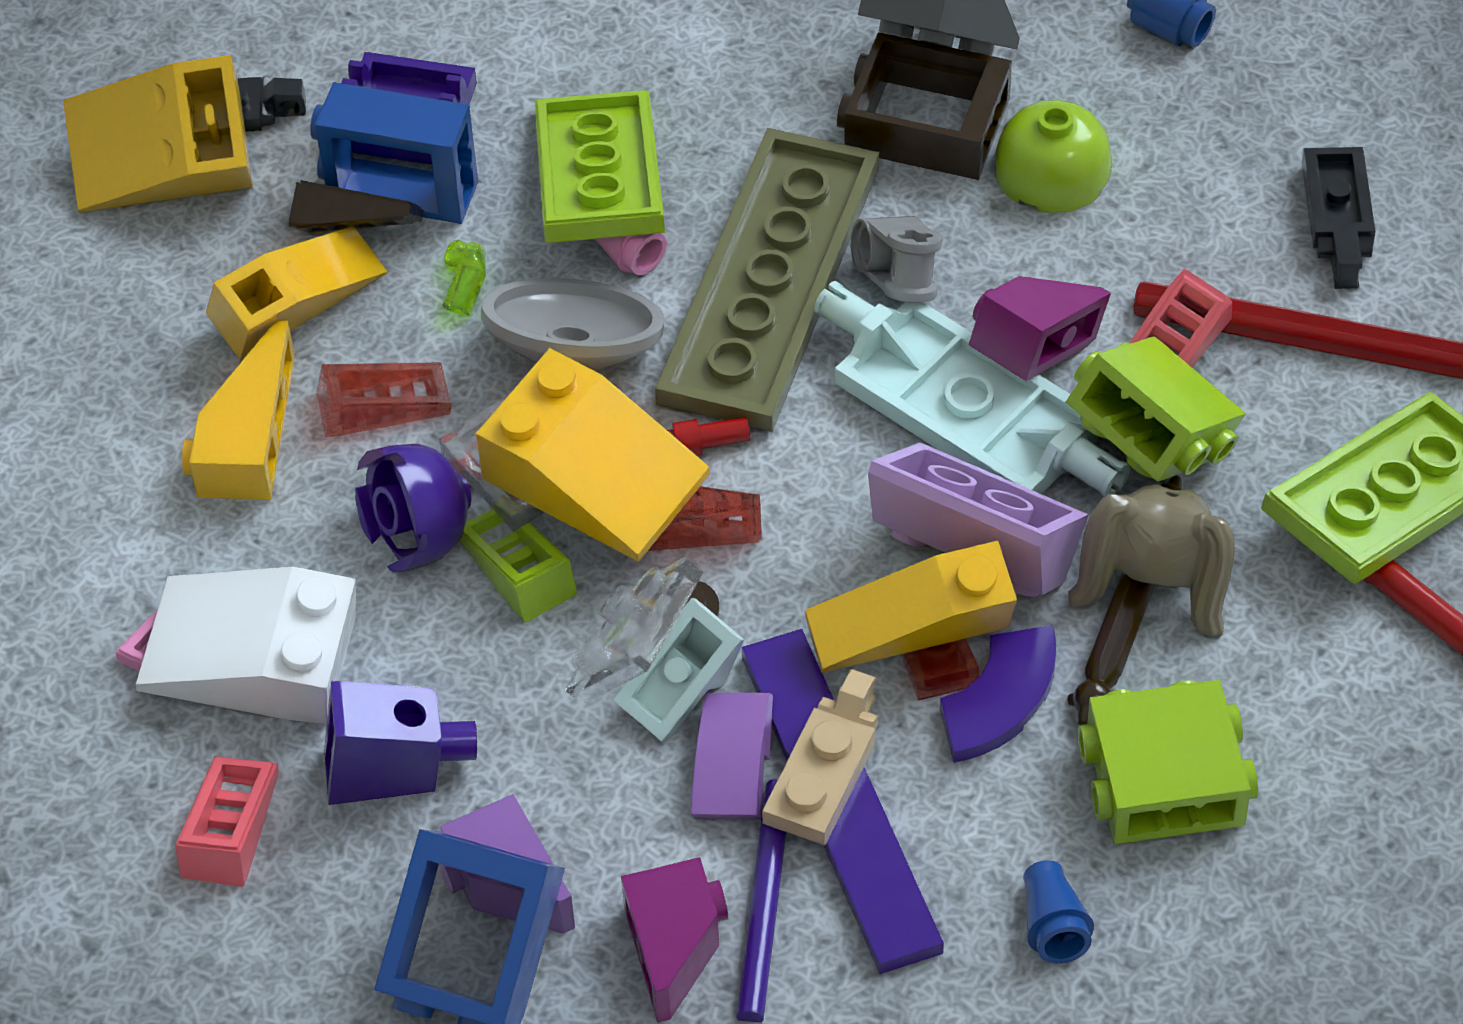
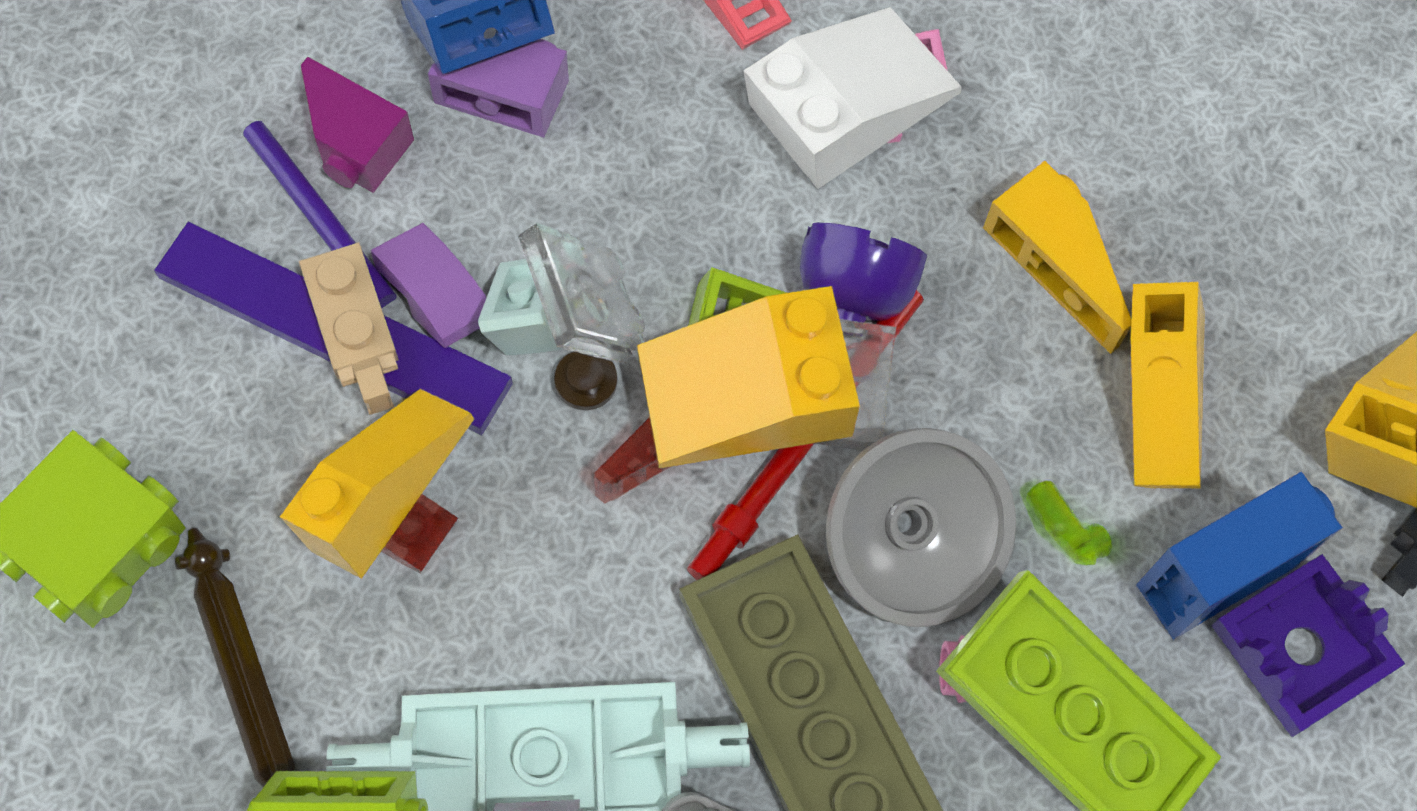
camera: 130 degrees right, 15 degrees up
(334, 208) = (1222, 481): dark brown slope -> none
(361, 413) = (1029, 327): clear red slope -> none
(388, 741) = (670, 84): dark purple torso -> none
(959, 506) = (405, 605): lavender slope -> none
(1004, 695) = (269, 483): dark purple tile -> none
(1056, 918) = (87, 352): blue cone -> none
(1159, 541) = (235, 713): dark tan hair -> none

